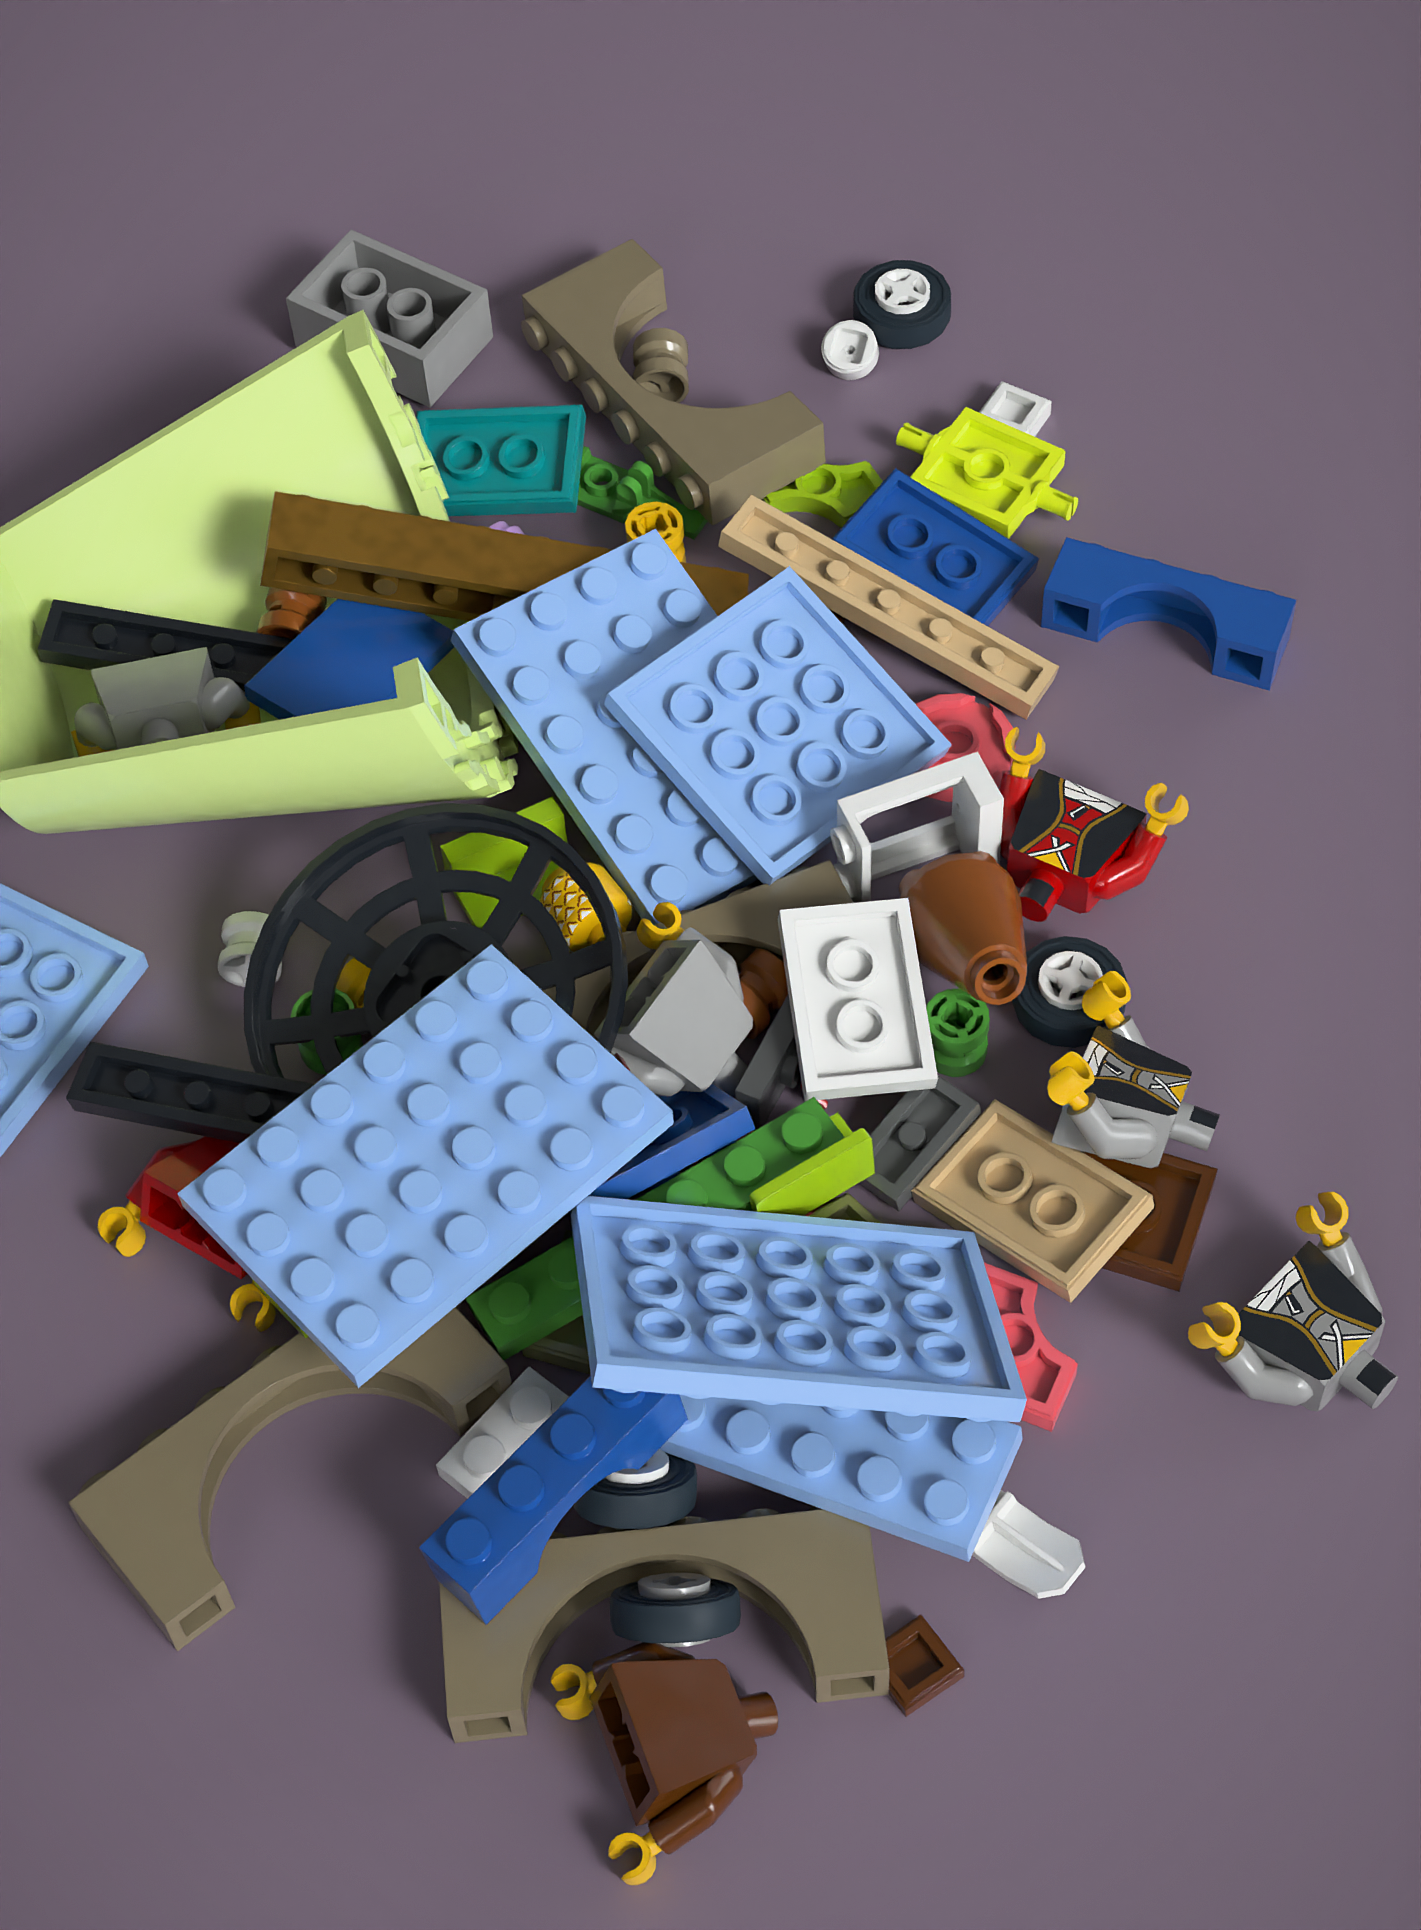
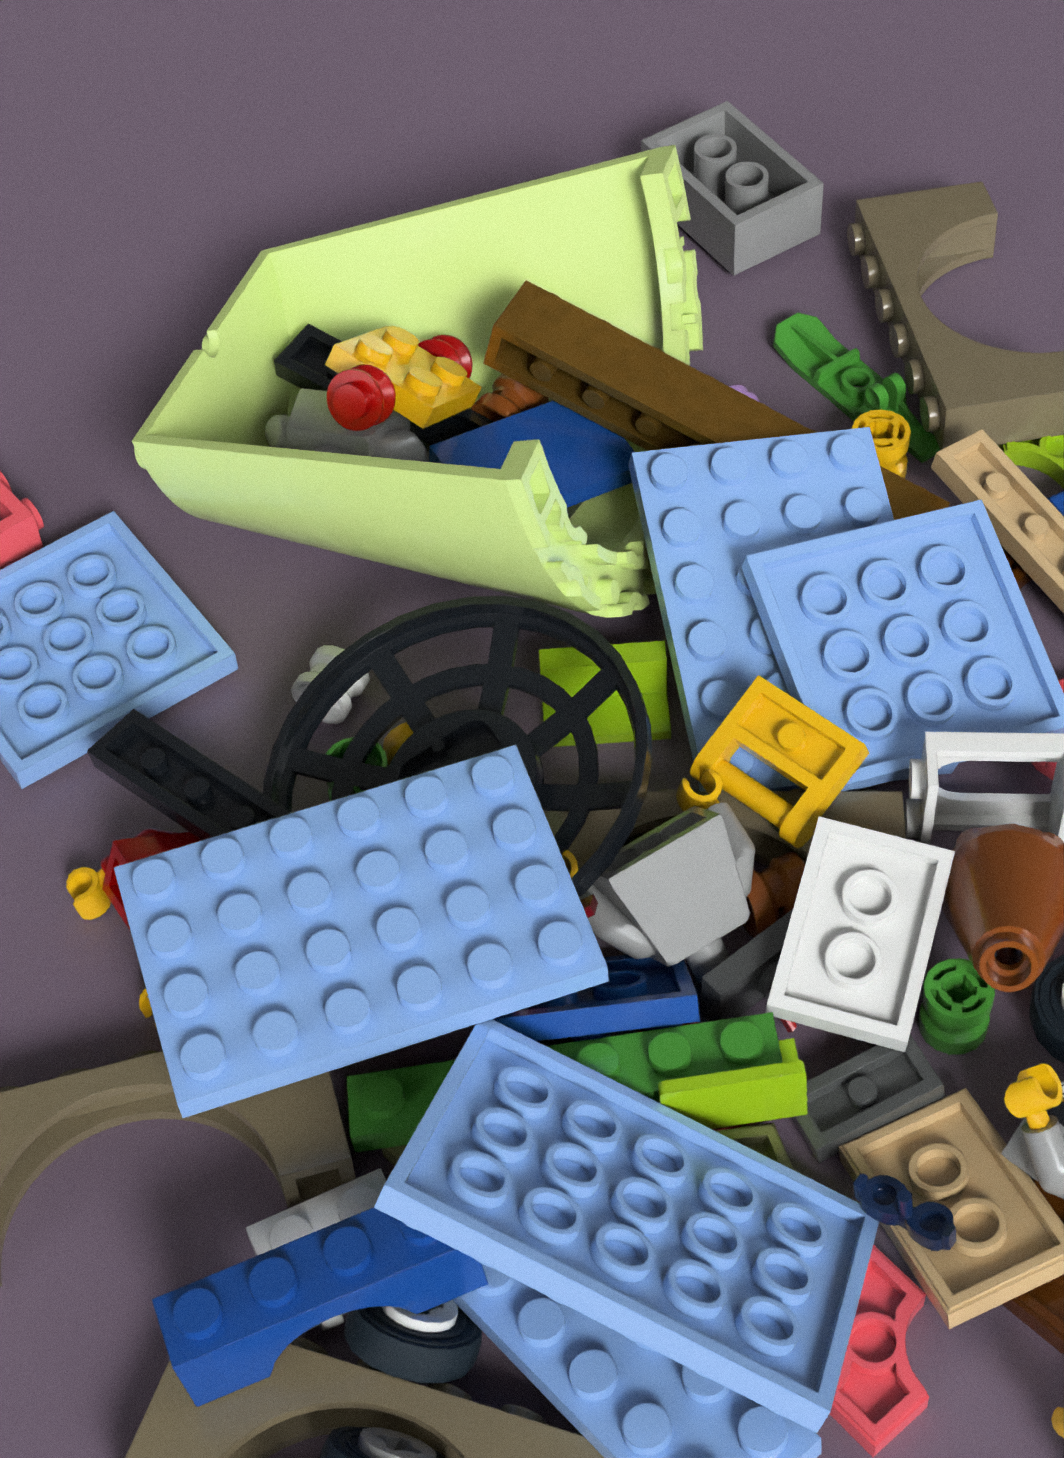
camera: 25 degrees right, 5 degrees down
(189, 627) = (397, 373): none -> yellow plate
(507, 458) = (774, 336): teal tile -> none
(575, 913) = (670, 750): yellow head -> none
(661, 363) = (961, 297): dark tan wheel -> none
(723, 852) = (791, 742): none -> yellow plate
(981, 1219) = (892, 1204): none -> dark blue piece

